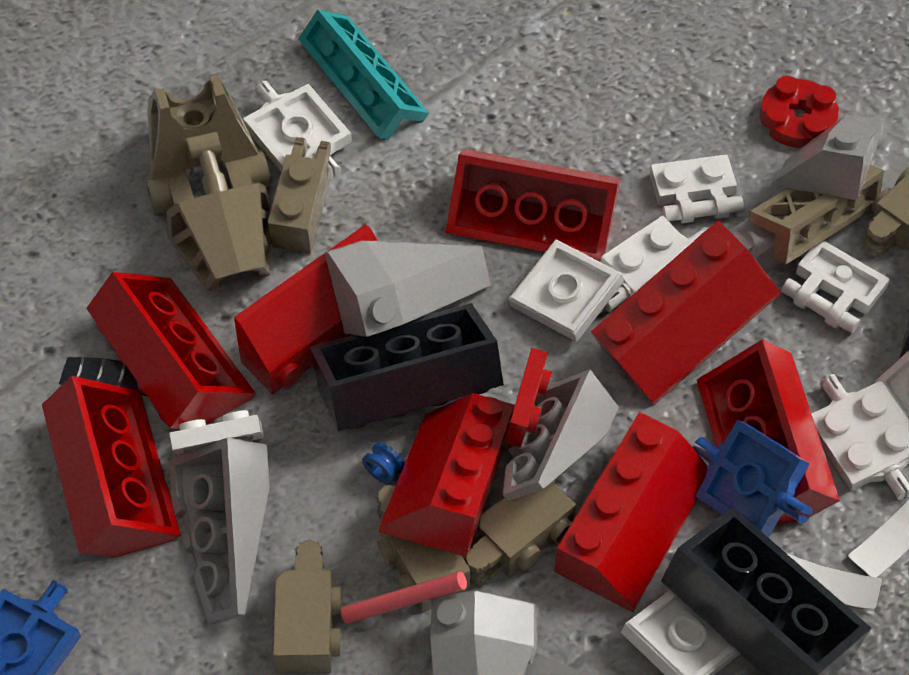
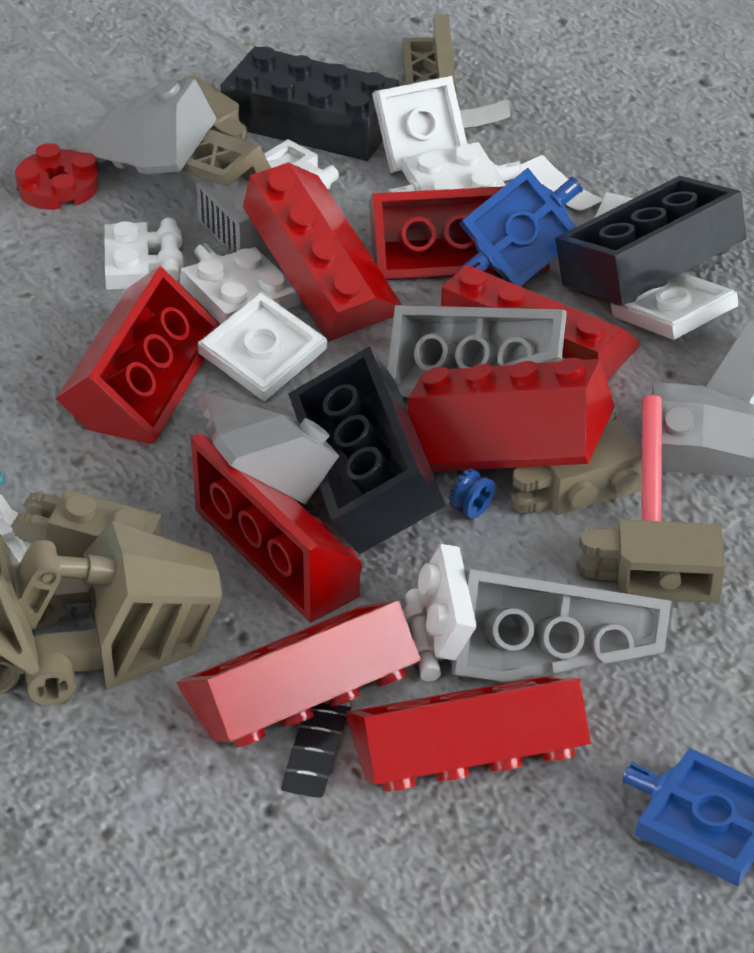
camera: 85 degrees left, 15 degrees down
(525, 414) = (432, 339): red wing -> none

